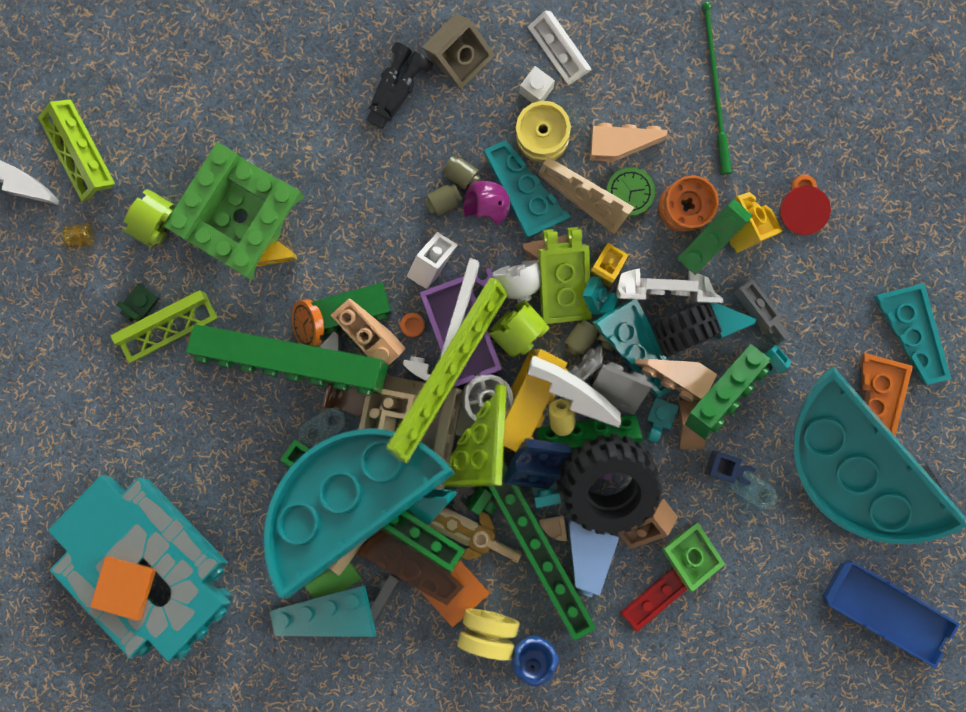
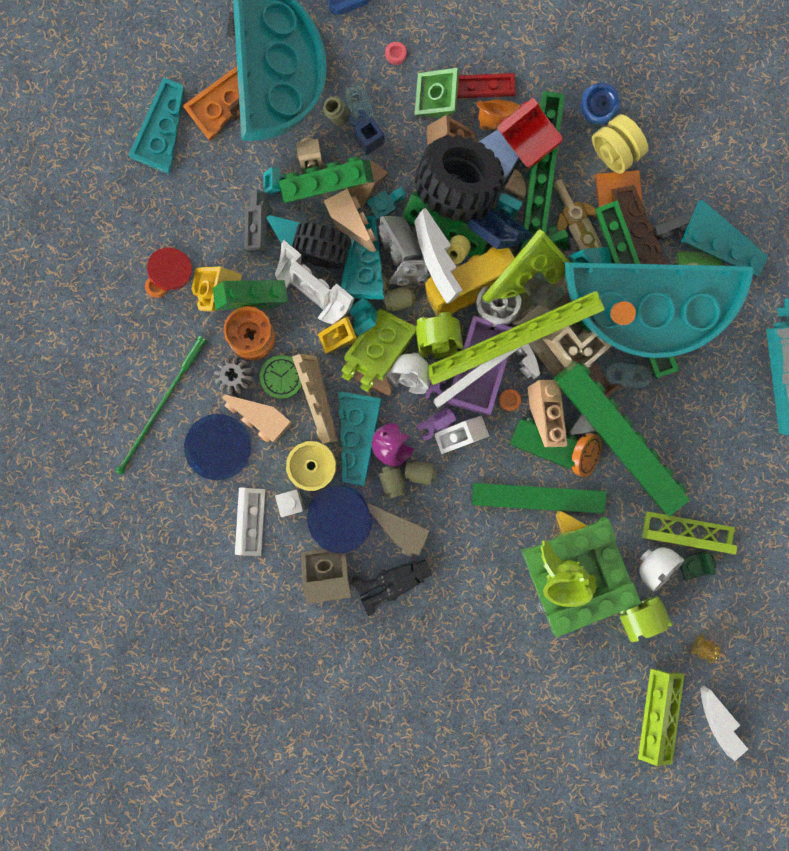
camera: 150 degrees left, 0 degrees up
(171, 274) = (658, 567): none -> white cylinder
(244, 194) = (567, 580): none -> lime helmet
(322, 257) = (538, 498): none -> green tile
(367, 464) = (623, 313): none -> orange tile
(421, 136) = (403, 532): none -> dark tan slope
(455, 434) = (542, 291): none -> clear smoke bracket
(459, 258) = (440, 420): none -> medium lavender plate
(483, 104) = (339, 519): none -> clear blue tile
(577, 575) = (530, 133): none -> red bracket
(624, 580) = (493, 112): none -> orange piece
(638, 89) = (217, 447): none -> clear blue tile
(673, 167) = (239, 369): none -> light grey gear
(759, 567) = (395, 53): none -> coral tile
(763, 407) = (309, 154): none -> tan slope
(770, 466) = (336, 111): none -> olive brick

